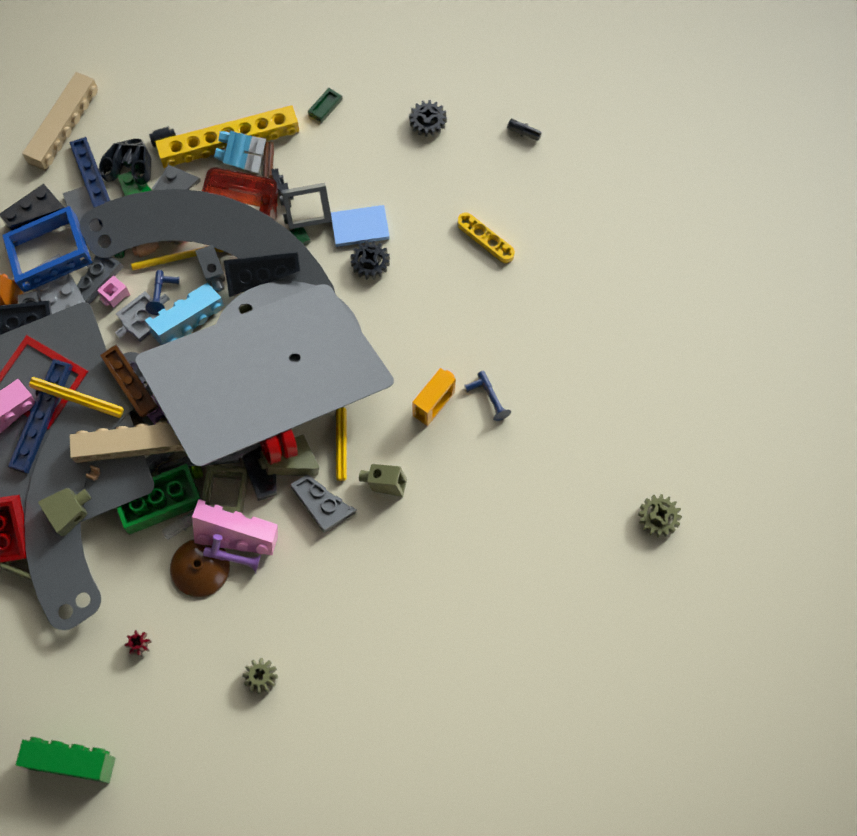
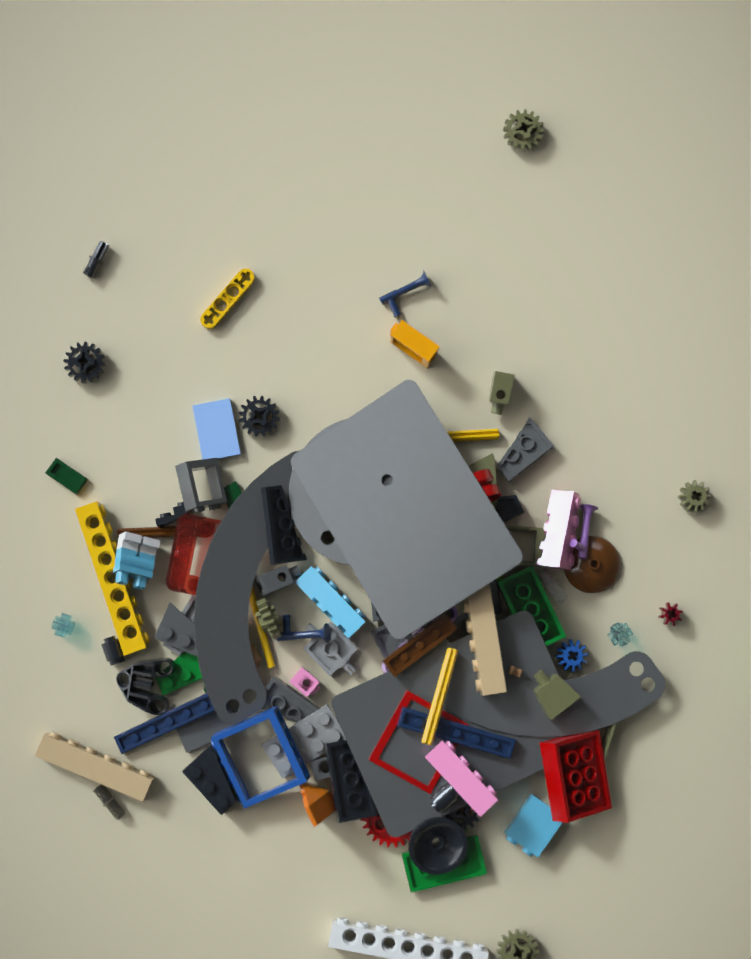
camera: 95 degrees left, 15 degrees up
(26, 133) = (109, 801): none -> clear smoke axle
(99, 540) = (570, 662): none -> blue gear
(122, 589) = (620, 634): none -> clear light blue gear
(174, 259) = (268, 618): none -> olive gear
(189, 97) = (63, 625): none -> clear light blue gear

